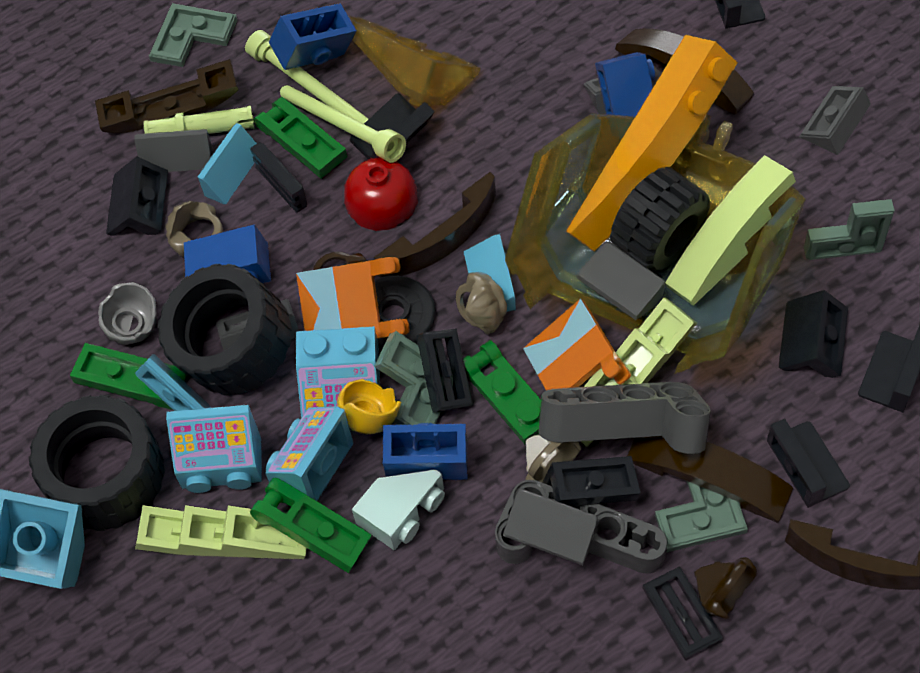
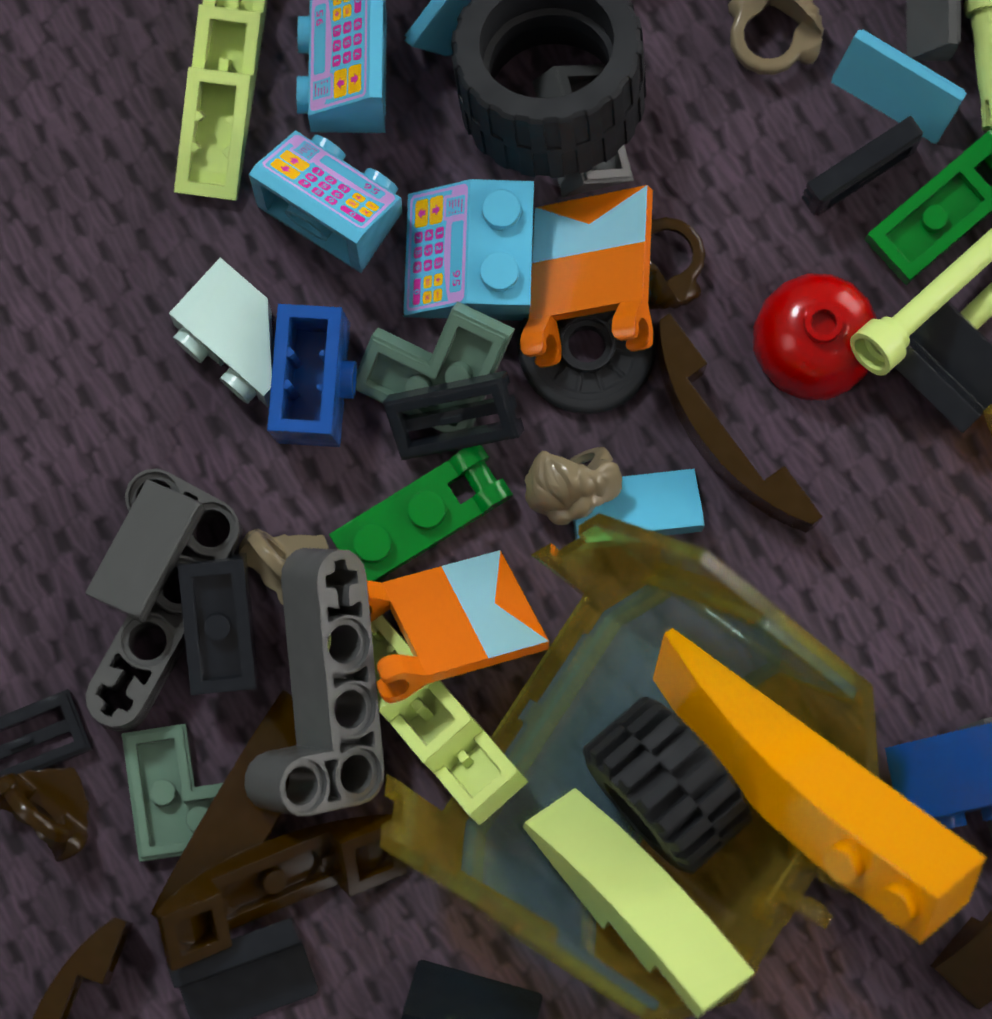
camera: 85 degrees right, 20 degrees up
(238, 247) = (695, 78): blue brick -> none
(311, 524) = (208, 202): green plate -> none
(368, 406) = (392, 289): yellow hair -> none
(622, 281) = (570, 710): dark grey slope -> none
(743, 441) = (270, 877): none -> dark brown slope

